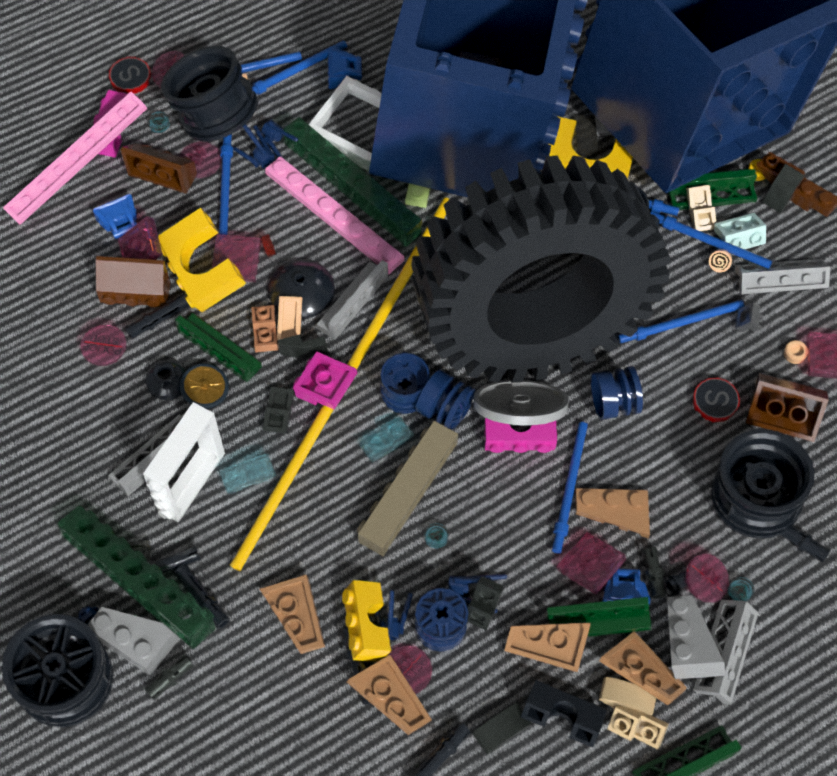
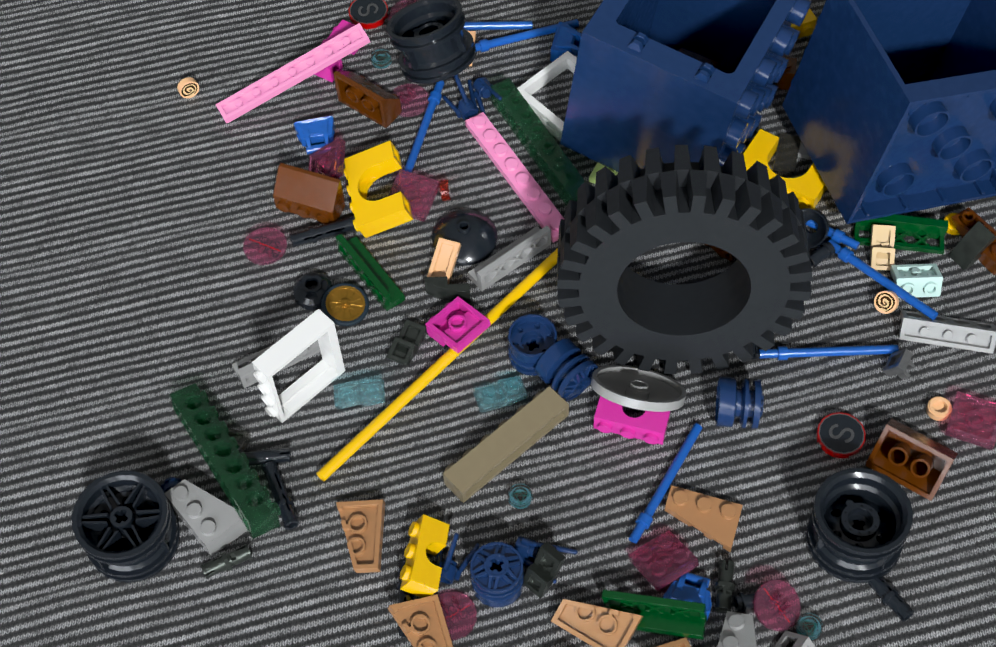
camera: 20 degrees right, 5 degrees down
(264, 328) = (418, 265): nougat slope -> none

